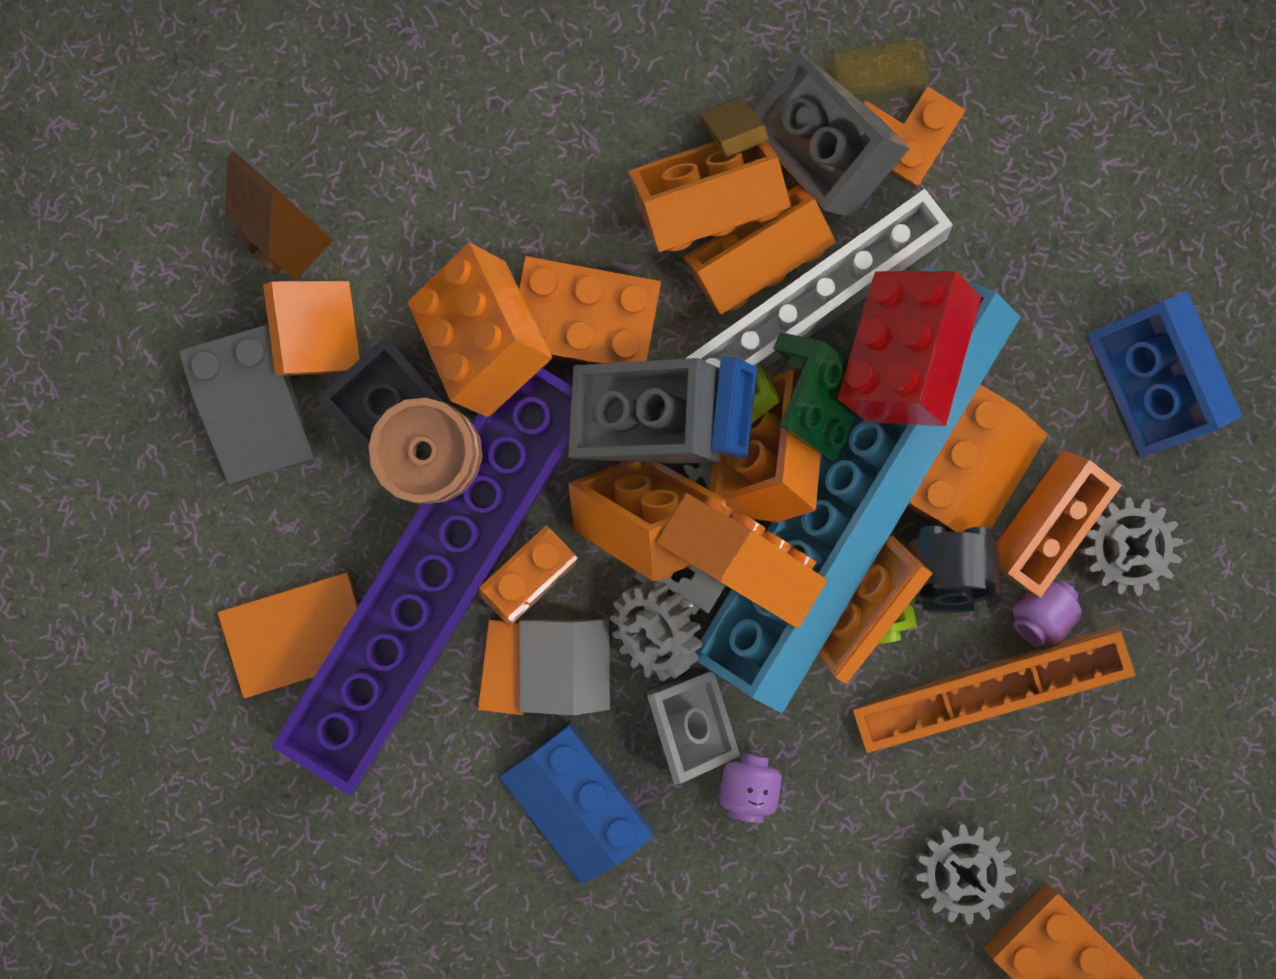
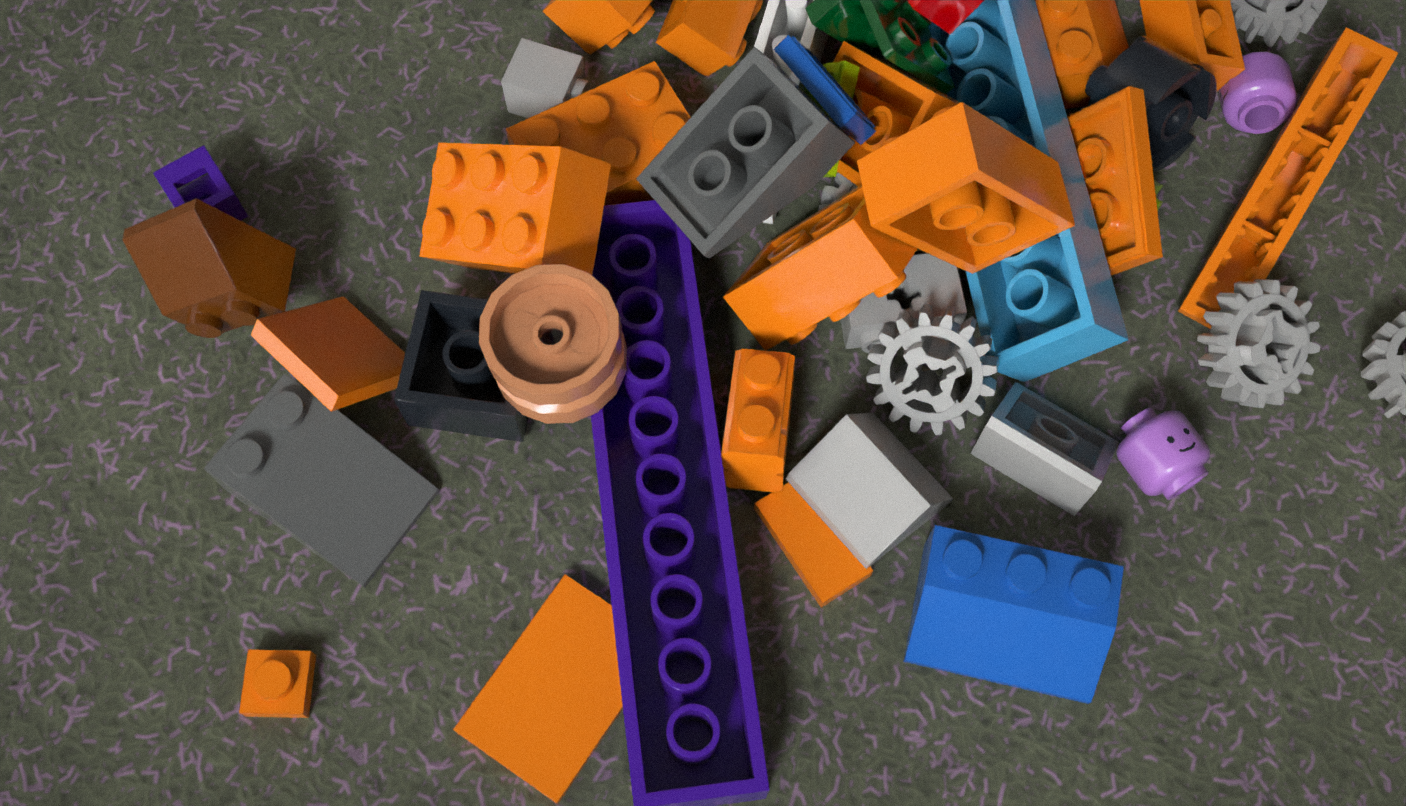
camera: 45 degrees left, 20 degrees down
(140, 505) = (277, 683): none -> orange plate
(303, 126) = (210, 188): none -> dark purple brick
(587, 231) = (542, 78): none -> light grey brick
(871, 773) = (1258, 343): none -> light grey gear

